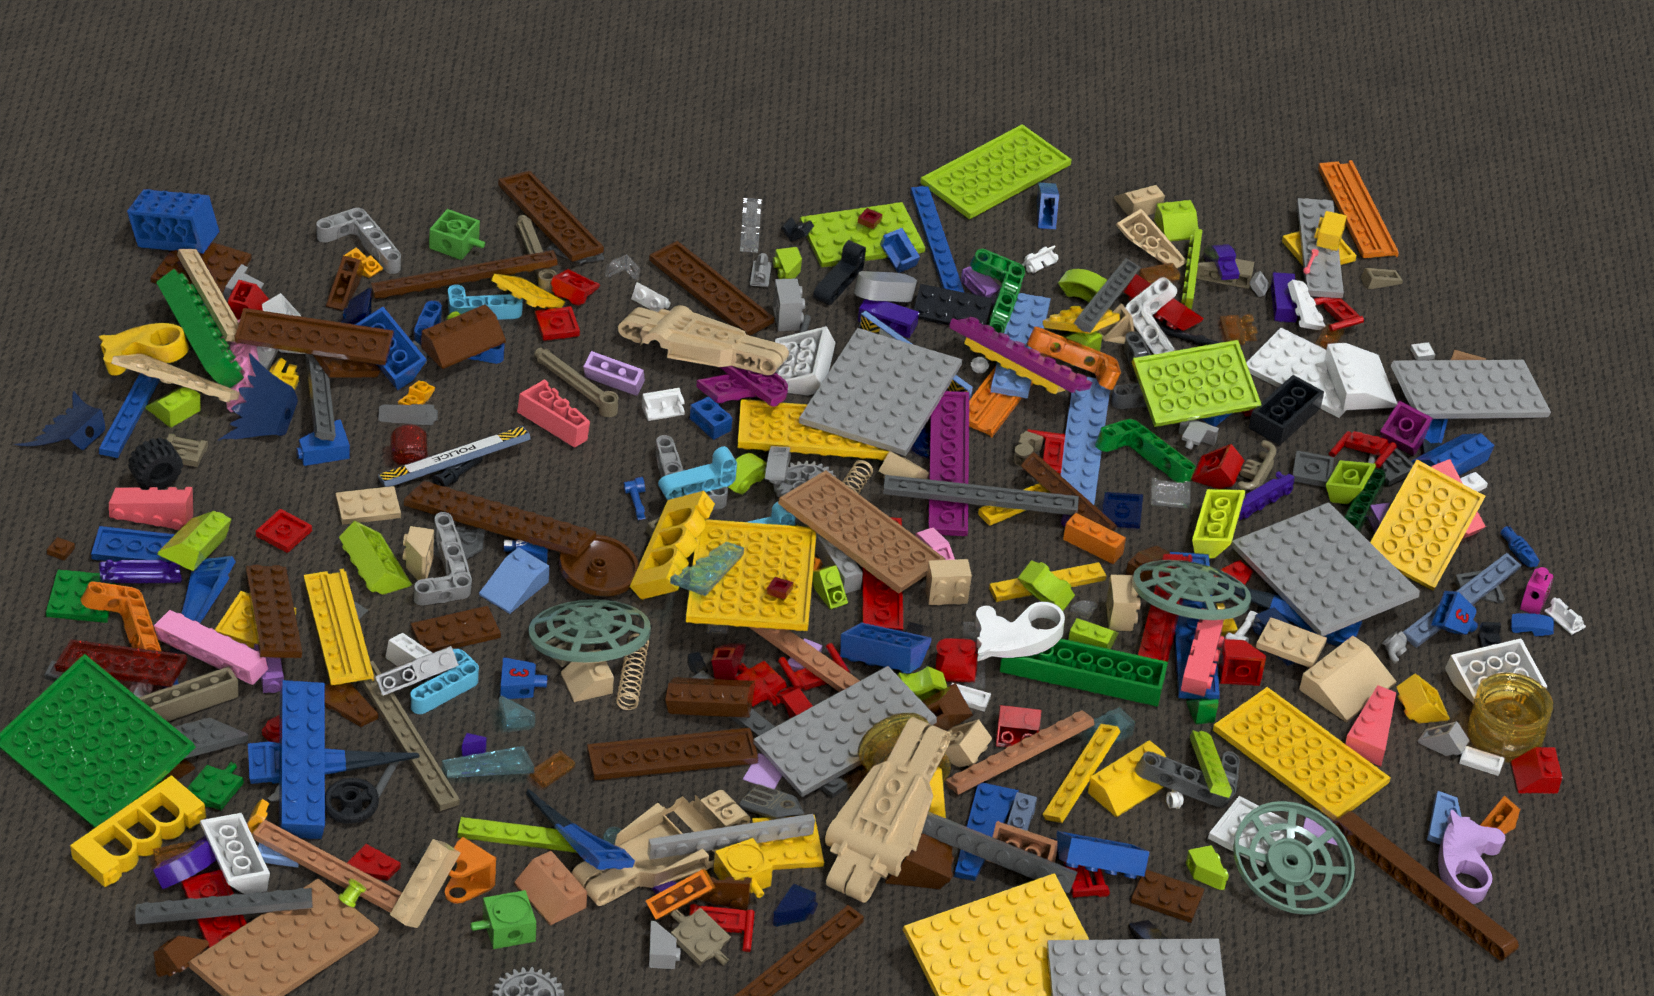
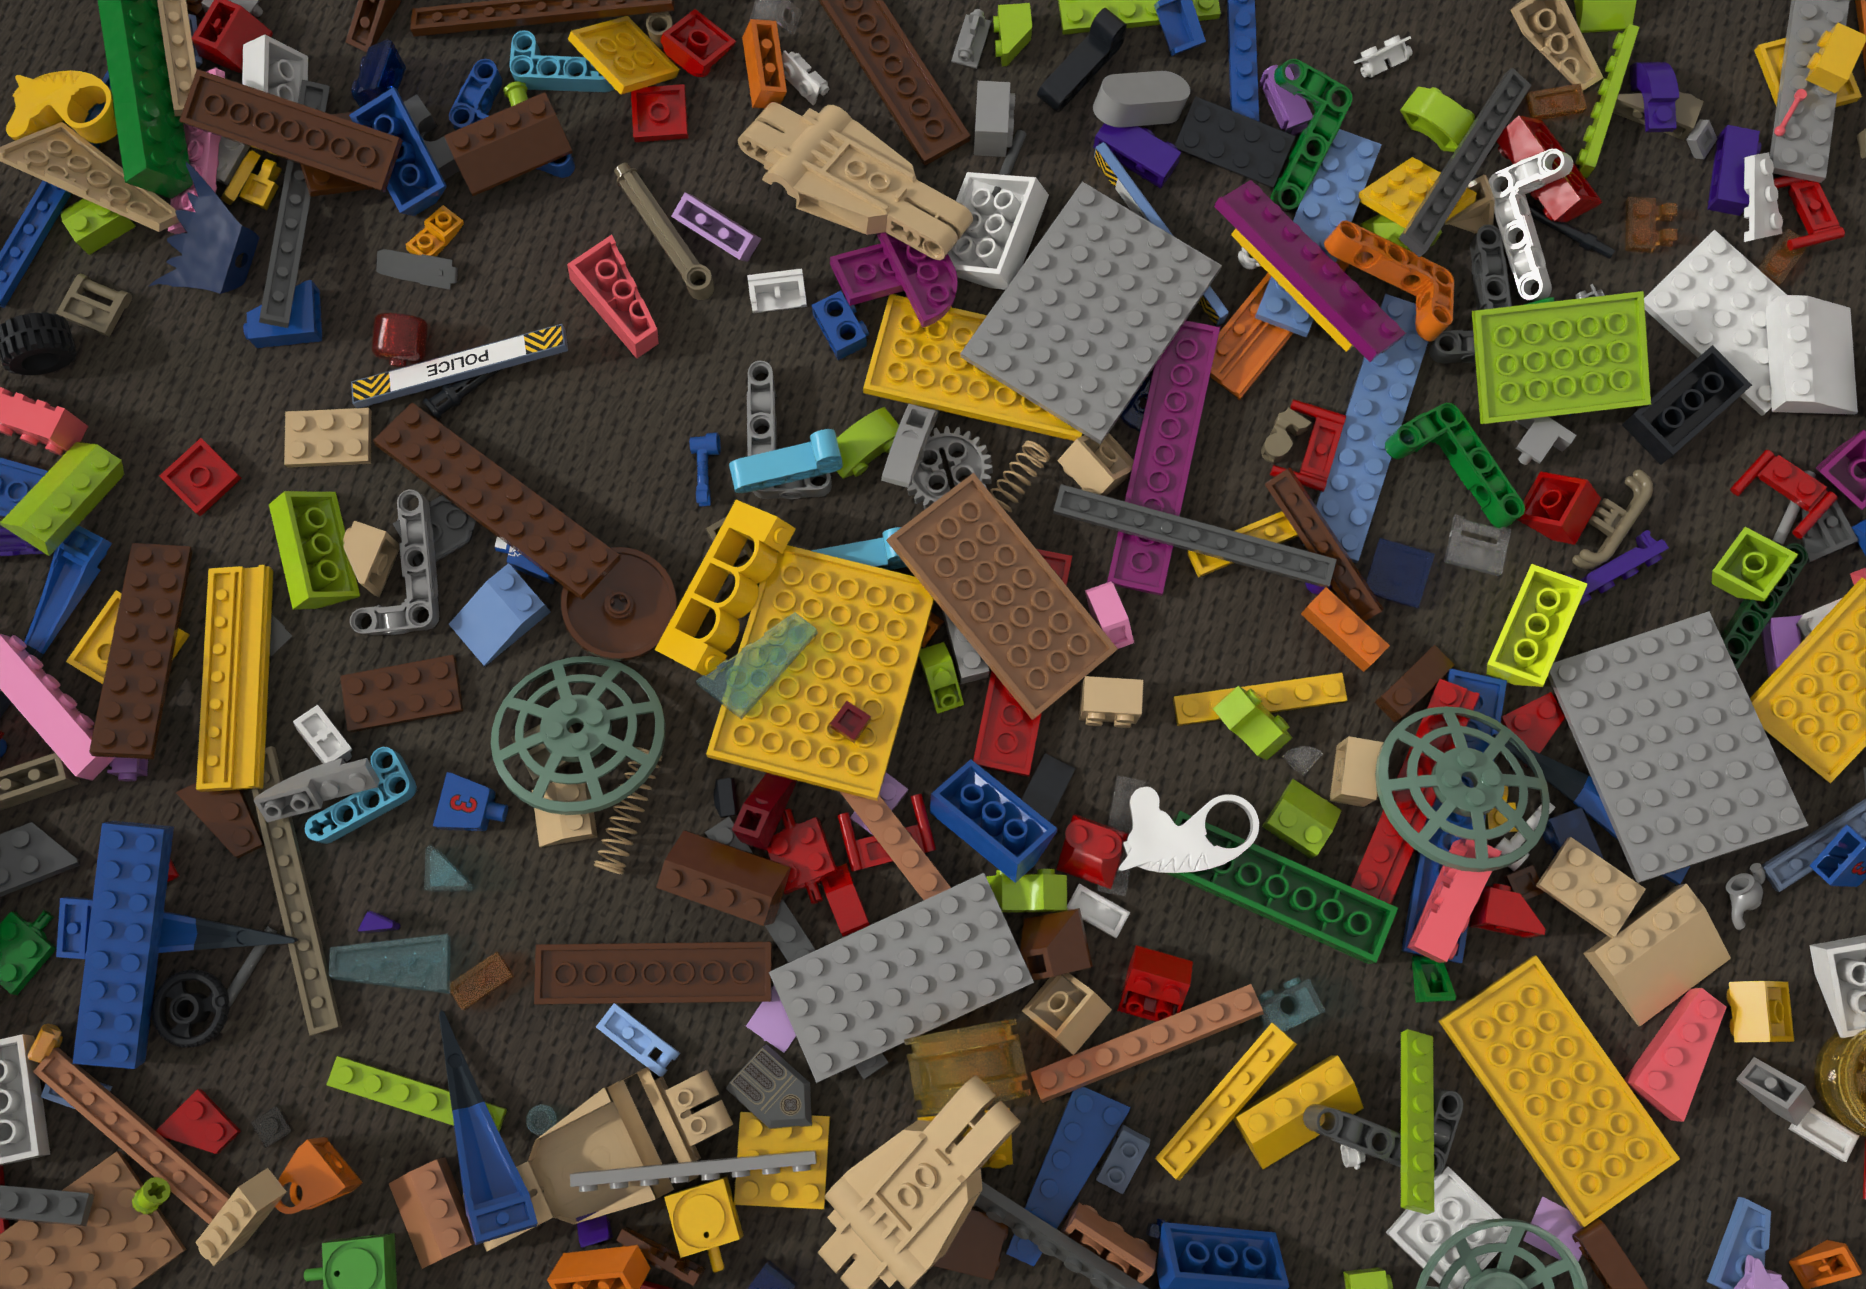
camera: 15 degrees right, 35 degrees up
(624, 289) = (764, 63): none -> orange brick
(668, 787) = (636, 1039): none -> light blue plate
(1312, 468) = (1699, 522): dark grey plate -> none

